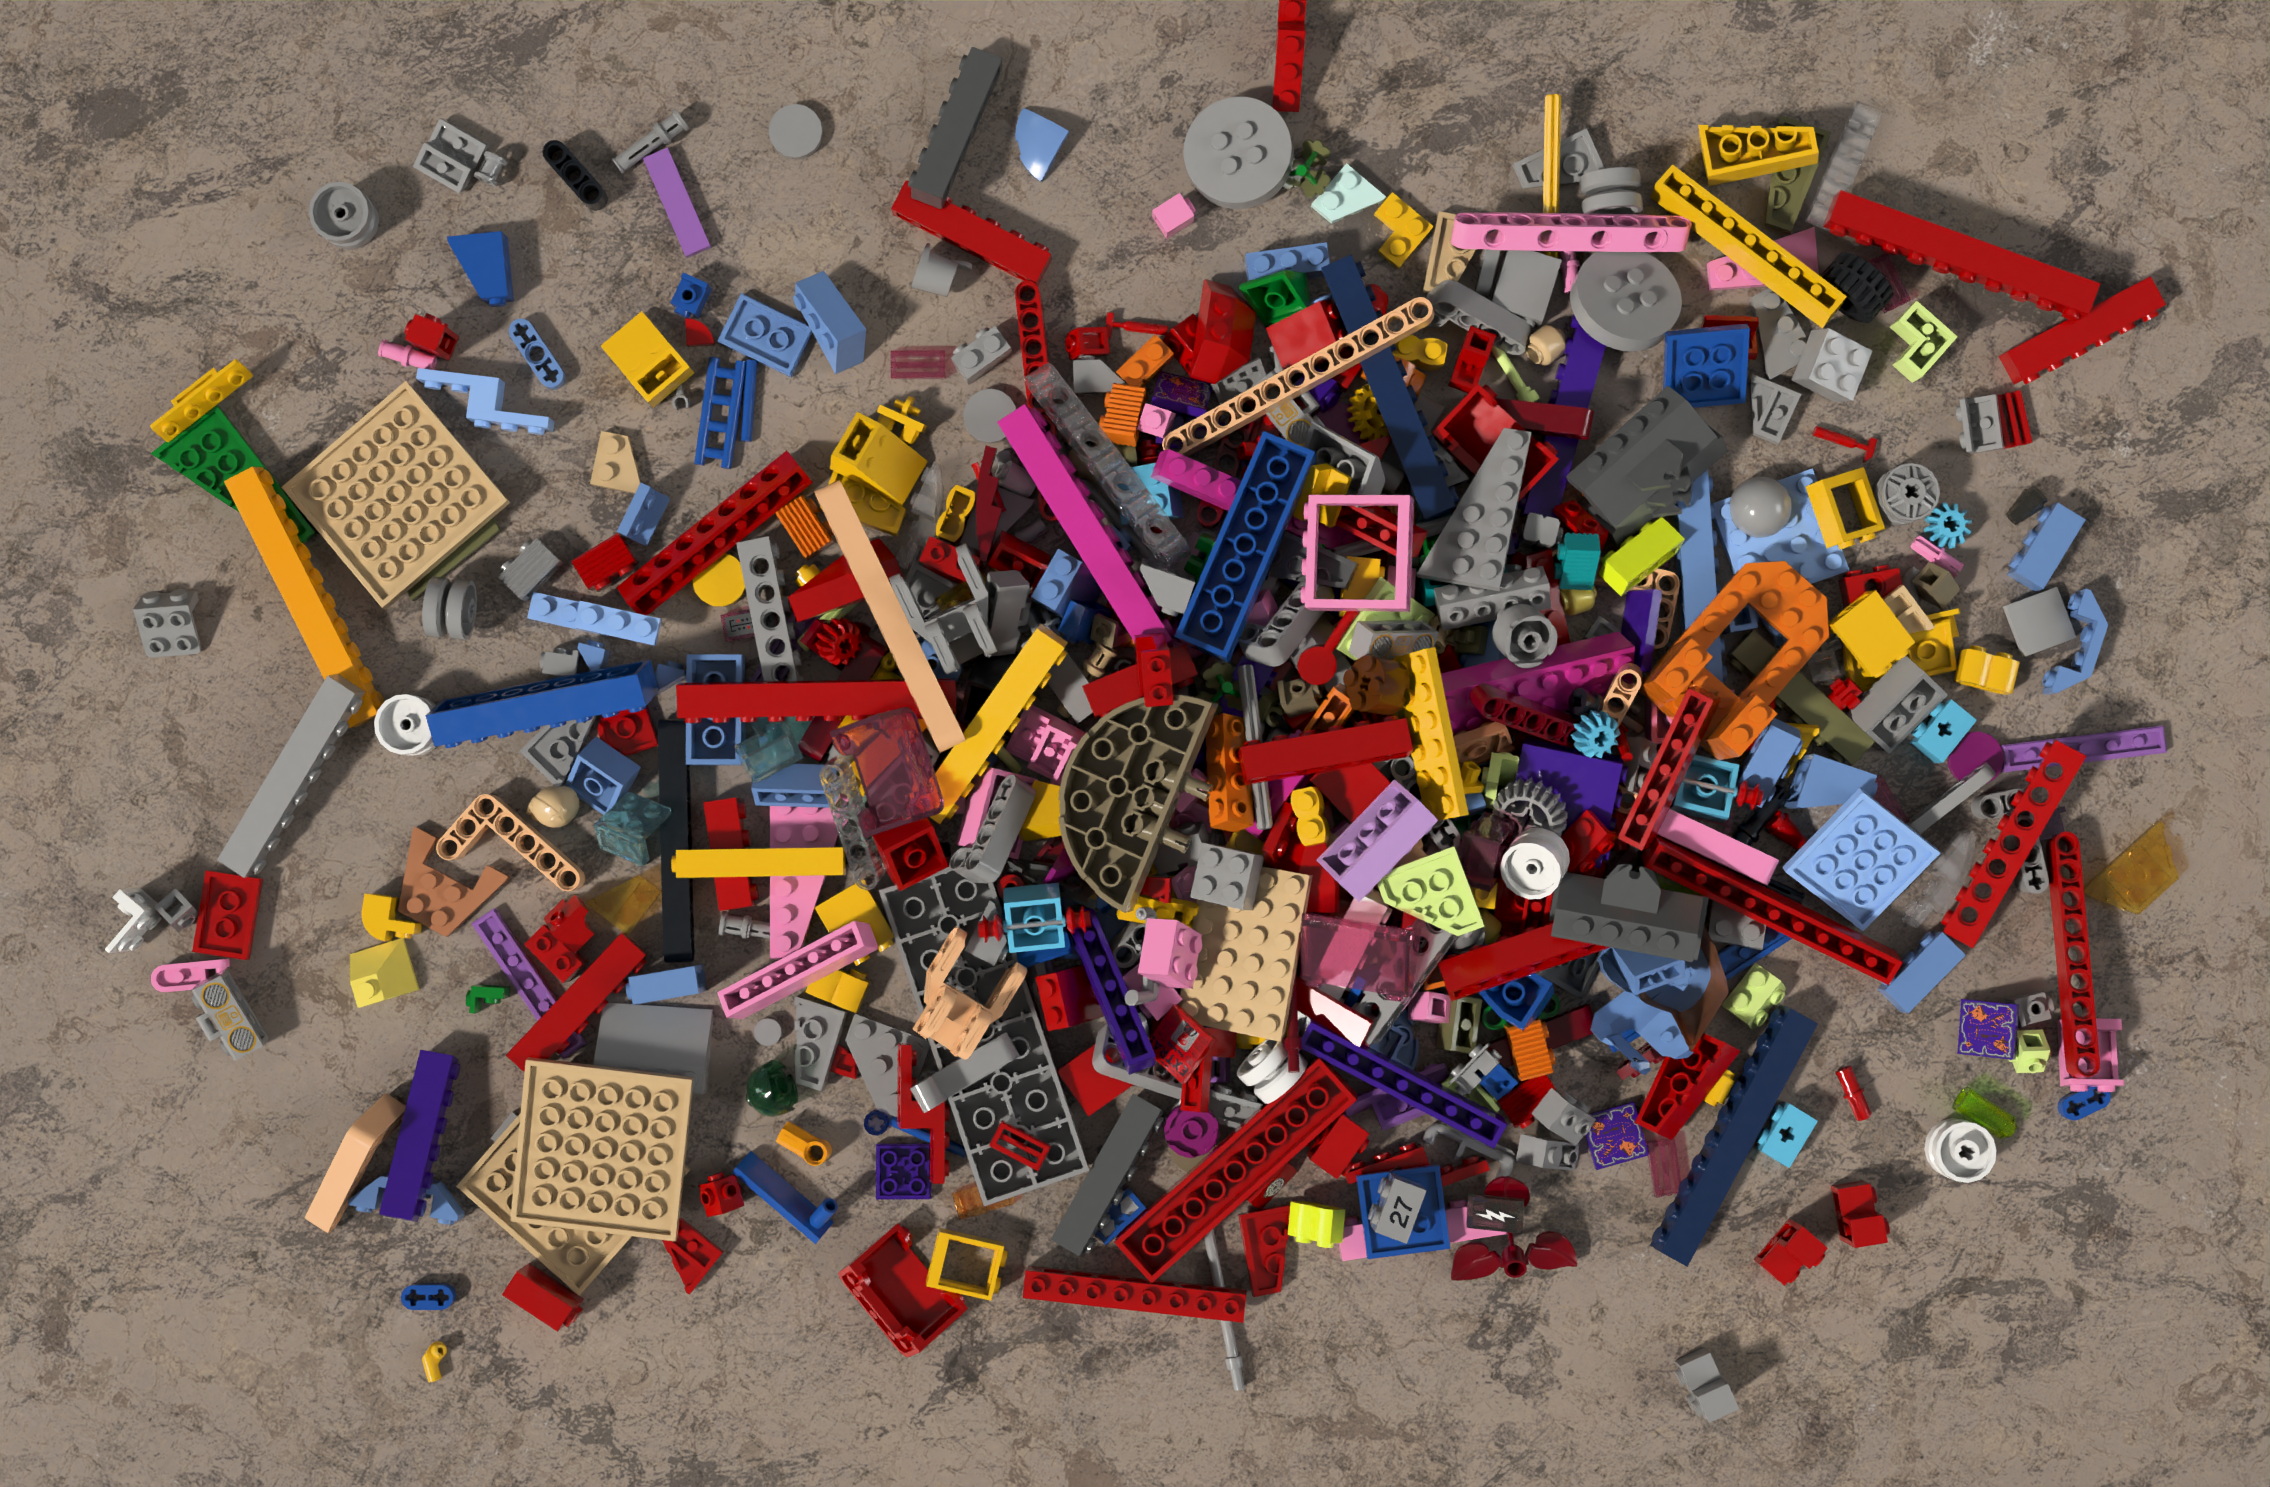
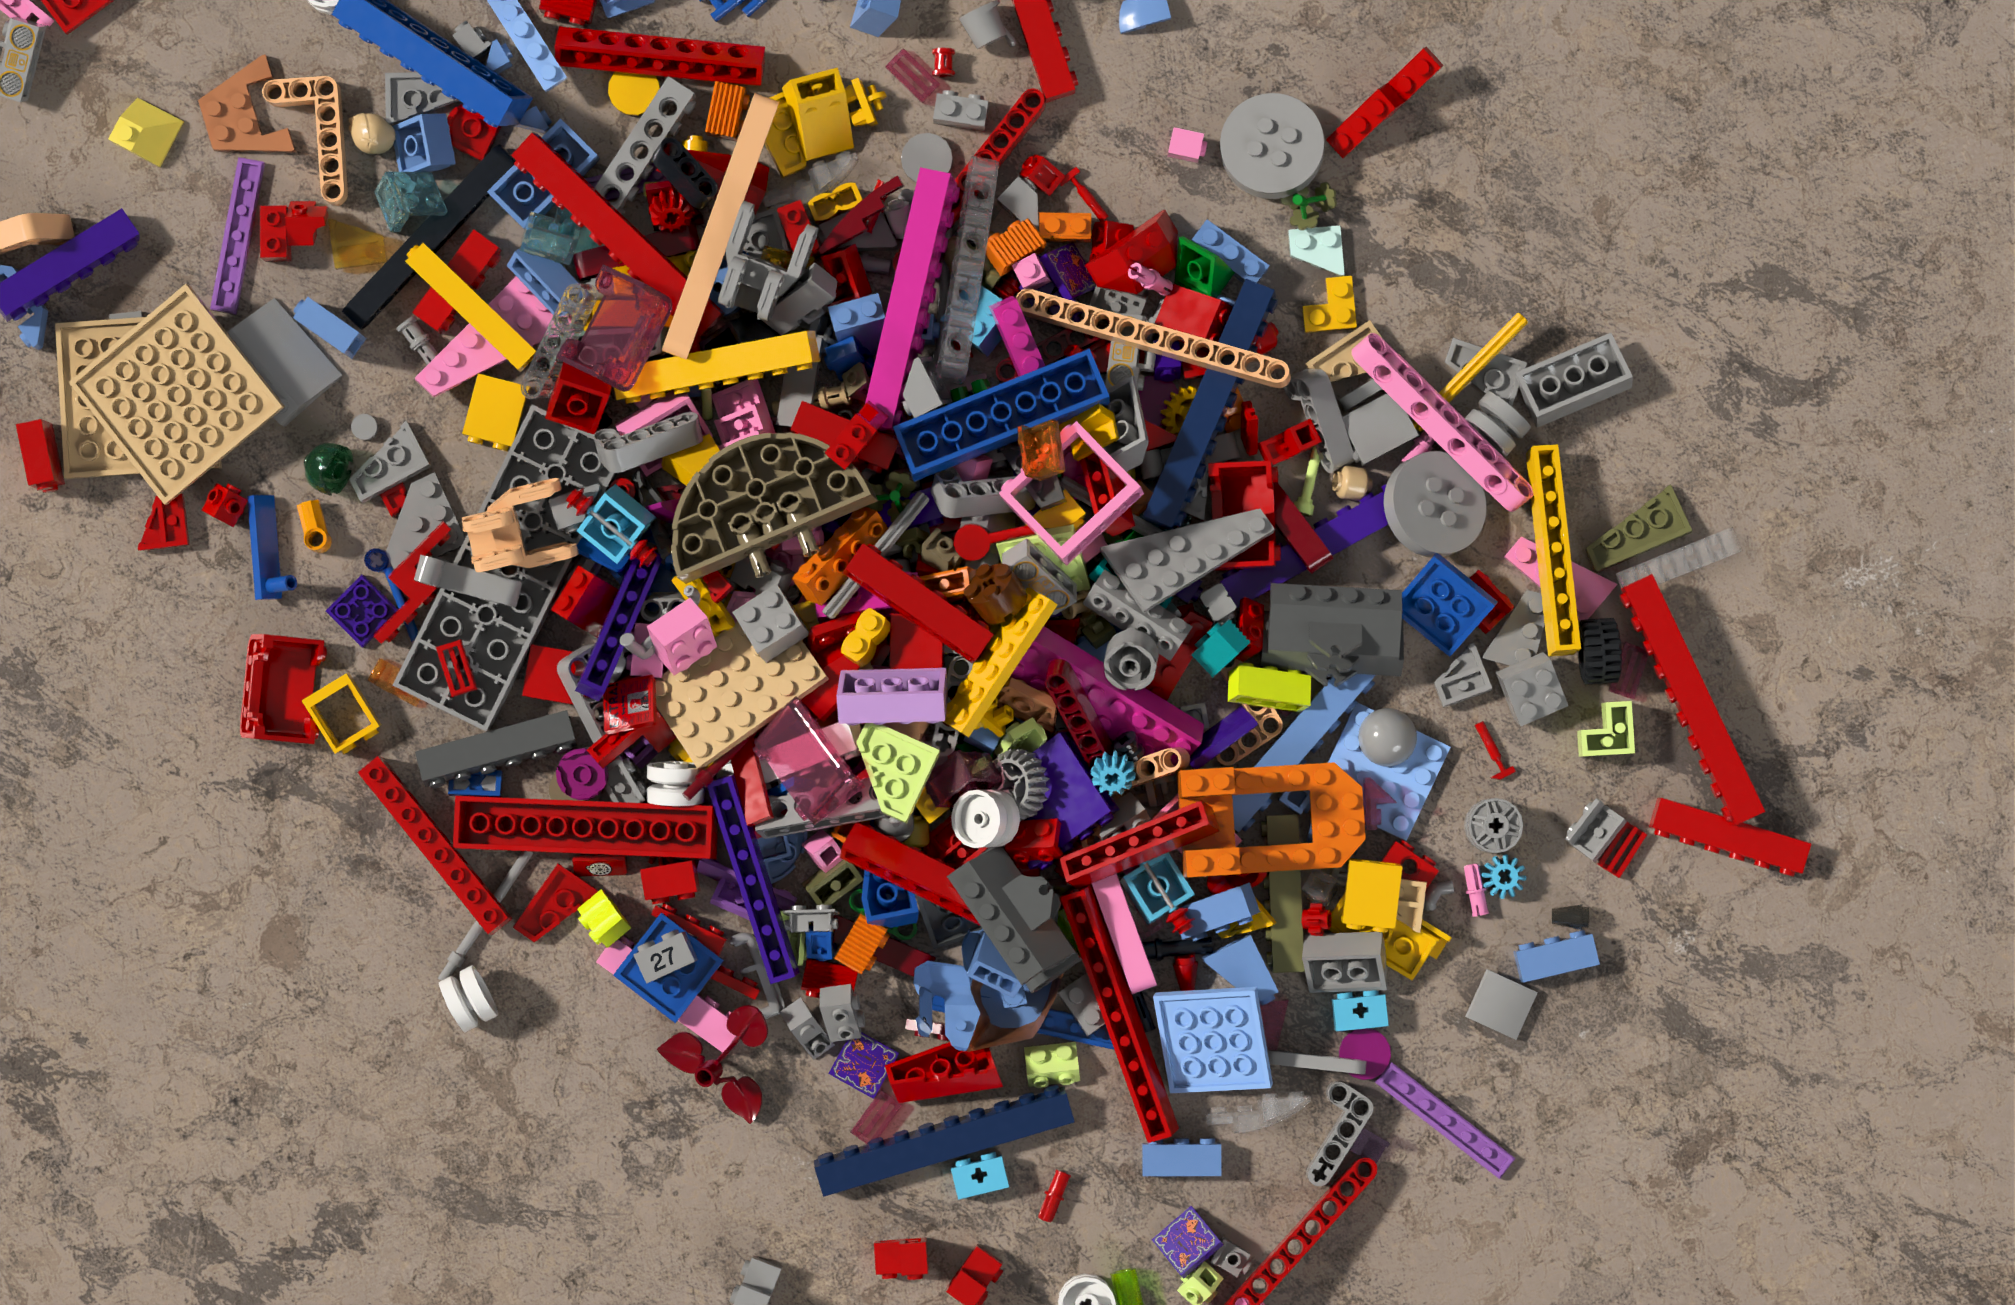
camera: 50 degrees right, 0 degrees up
(380, 918) = (180, 95): yellow brick -> none
(490, 993) = (204, 218): green bracket -> none
(579, 1001) = (259, 280): red brick -> none
(739, 625) = (615, 134): tile -> none
(798, 970) = (425, 404): bright pink brick -> none
(822, 602) = (682, 161): none -> black beam
(841, 989) = (442, 443): yellow brick -> none
(931, 331) = (943, 62): none -> red bush
(1249, 339) = (1150, 279): none -> bright pink pin
(1275, 1384) = (468, 998): none -> white wheel
(1306, 542) = (1041, 450): none -> clear orange bracket
(1426, 353) = (1265, 406): yellow brick -> none
(1432, 378) = (1249, 428): none -> red tile
(1495, 1213) = (728, 1029): clear smoke slope -> none
(1577, 601) = (1199, 678): light yellow head -> none
(1623, 746) = (1129, 797): red piece -> none
(1634, 106) = (1574, 380): none -> light grey slope
(1721, 1089) = (966, 1101): yellow brick -> none
(1745, 152) = (1622, 489): yellow wedge -> none
(1798, 559) = (1373, 795): none -> clear pink slope
(1828, 514) = (1426, 785): yellow window -> none
(1936, 585) = (1453, 908): dark tan brick -> none
(1970, 931) = (1417, 1111): red brick -> none
(1986, 671) = (1431, 1001): yellow brick -> none
(2085, 609) = (1540, 1028): medium blue slope -> none
(2136, 873) = (1395, 1240): clear yellow wing -> none

